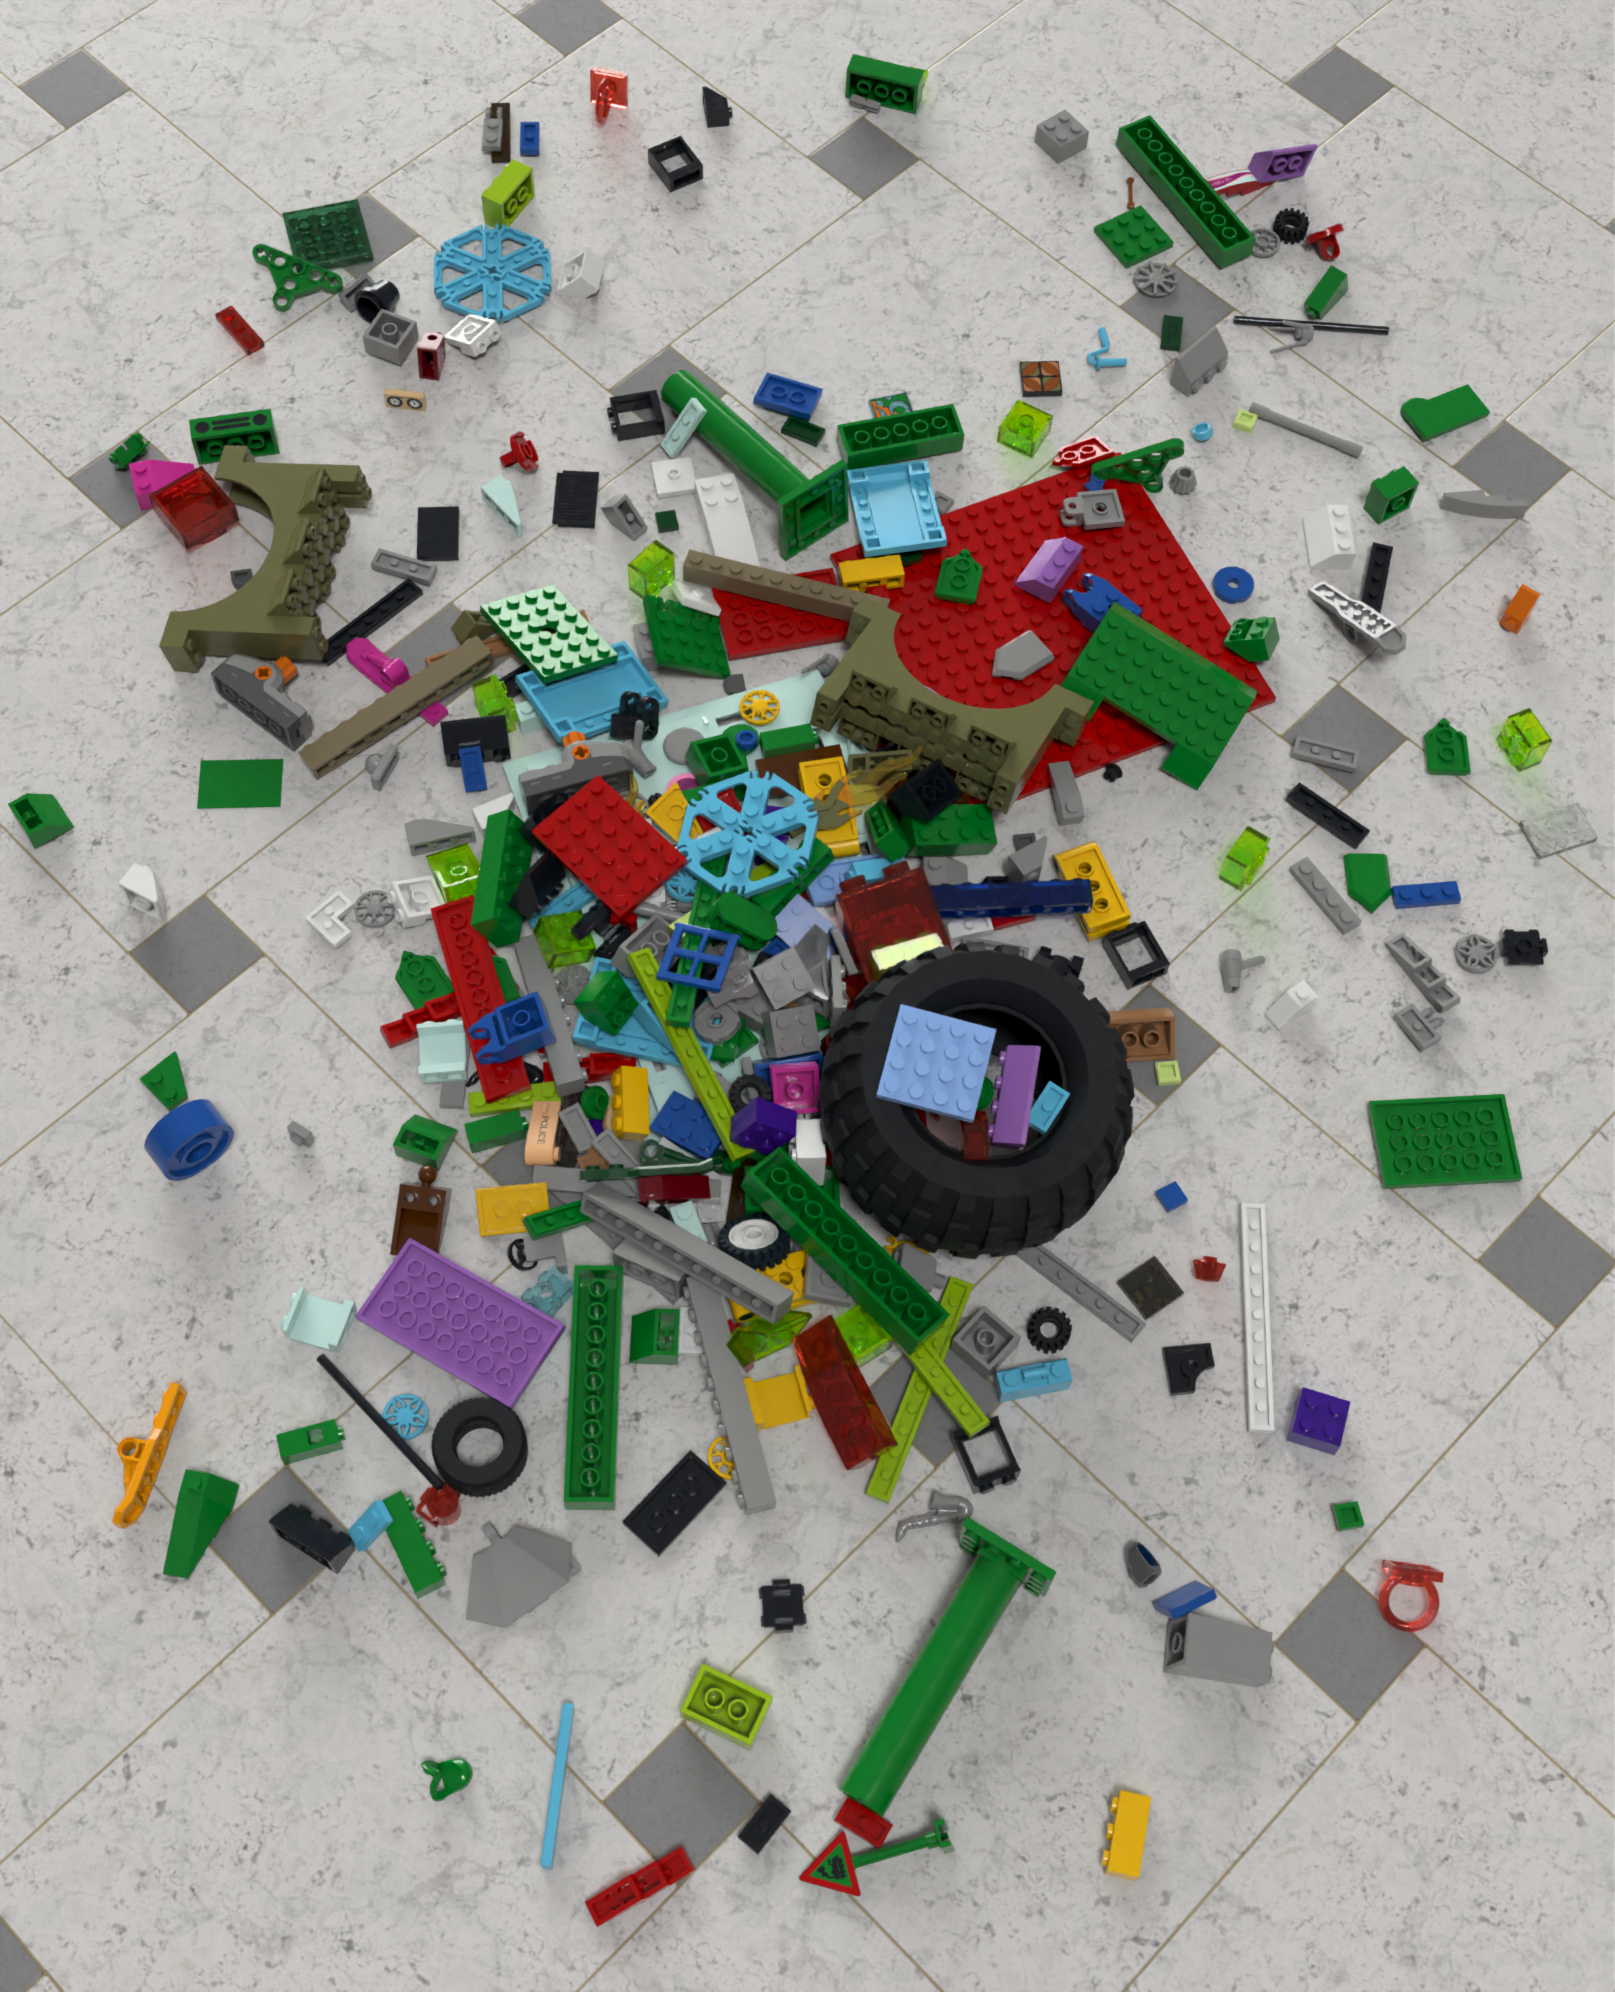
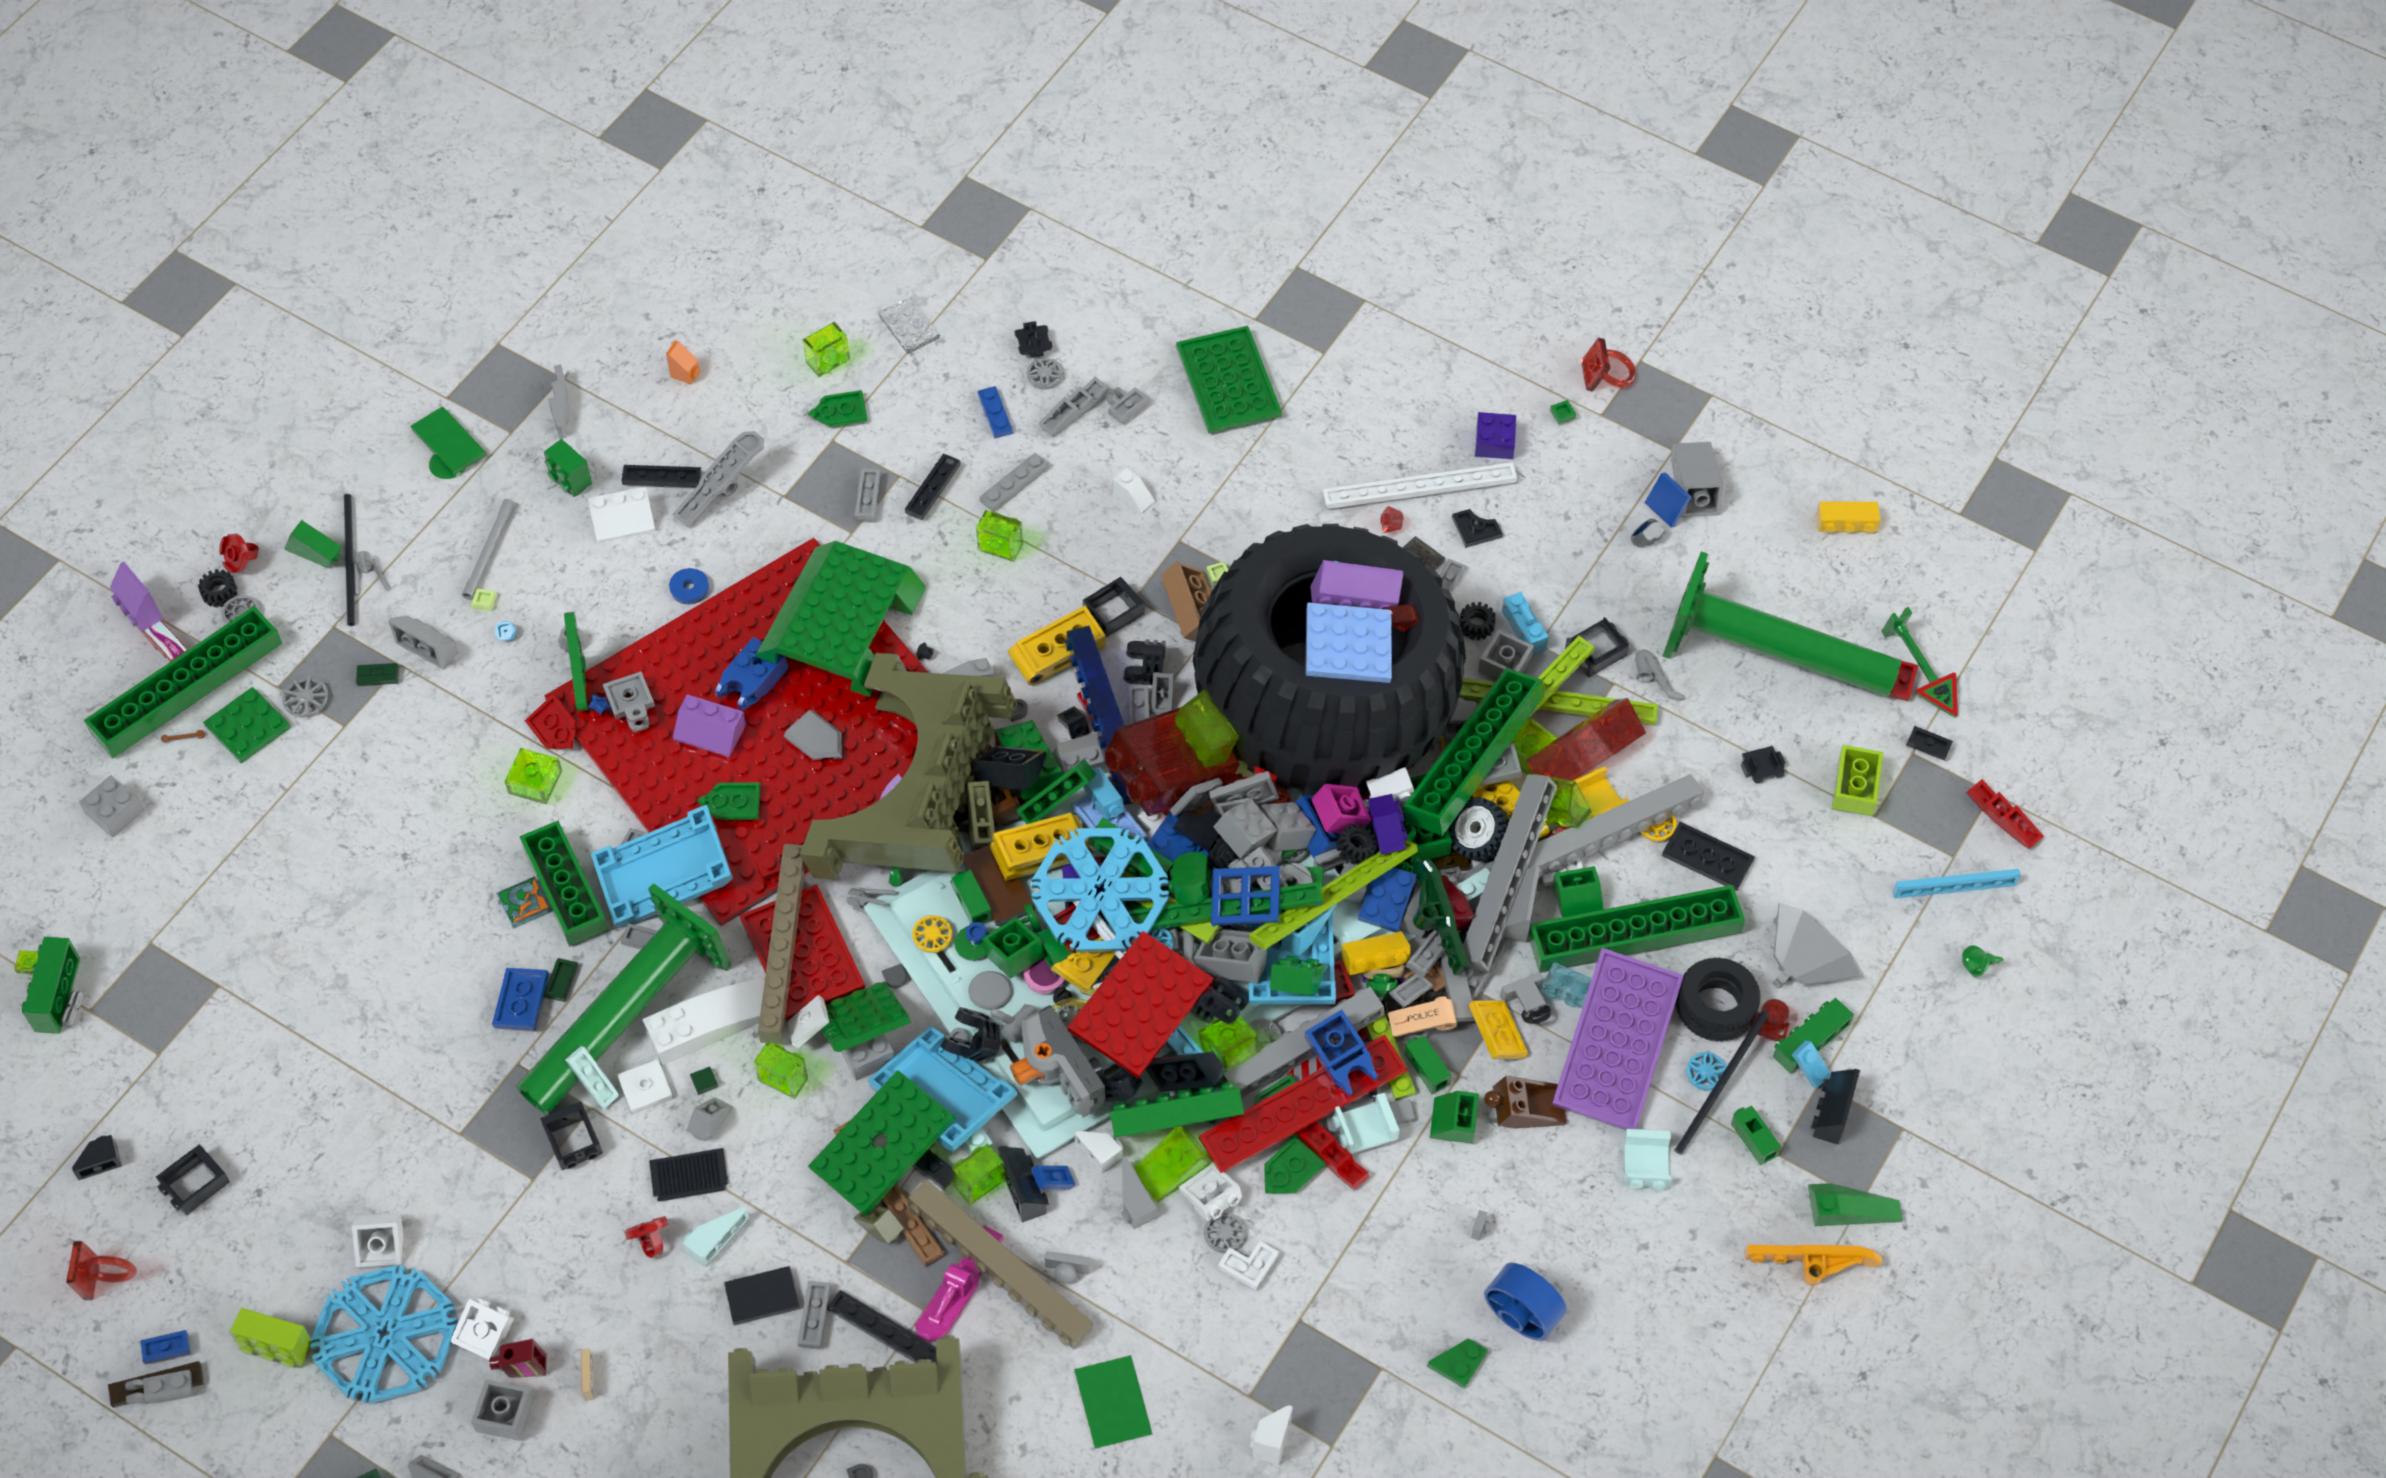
camera: 100 degrees left, 5 degrees down
(261, 694) = (1012, 1399): dark grey piece -> none
(377, 296) = (451, 1438): black piece -> none
(555, 1220) = (1503, 985): green tile -> none
(856, 794) = (1025, 809): clear yellow piece -> none
(871, 572) = (747, 874): yellow brick -> none
(1027, 862) = (1048, 693): light grey slope -> none
(1040, 378) = (456, 778): tile -> none
(1098, 362) = (428, 730): medium azure piece -> none
(1232, 967) = (1106, 537): light grey piece -> none
(1253, 638) = (756, 556): green slope -> none
(1367, 879) = (989, 454): green tile -> none

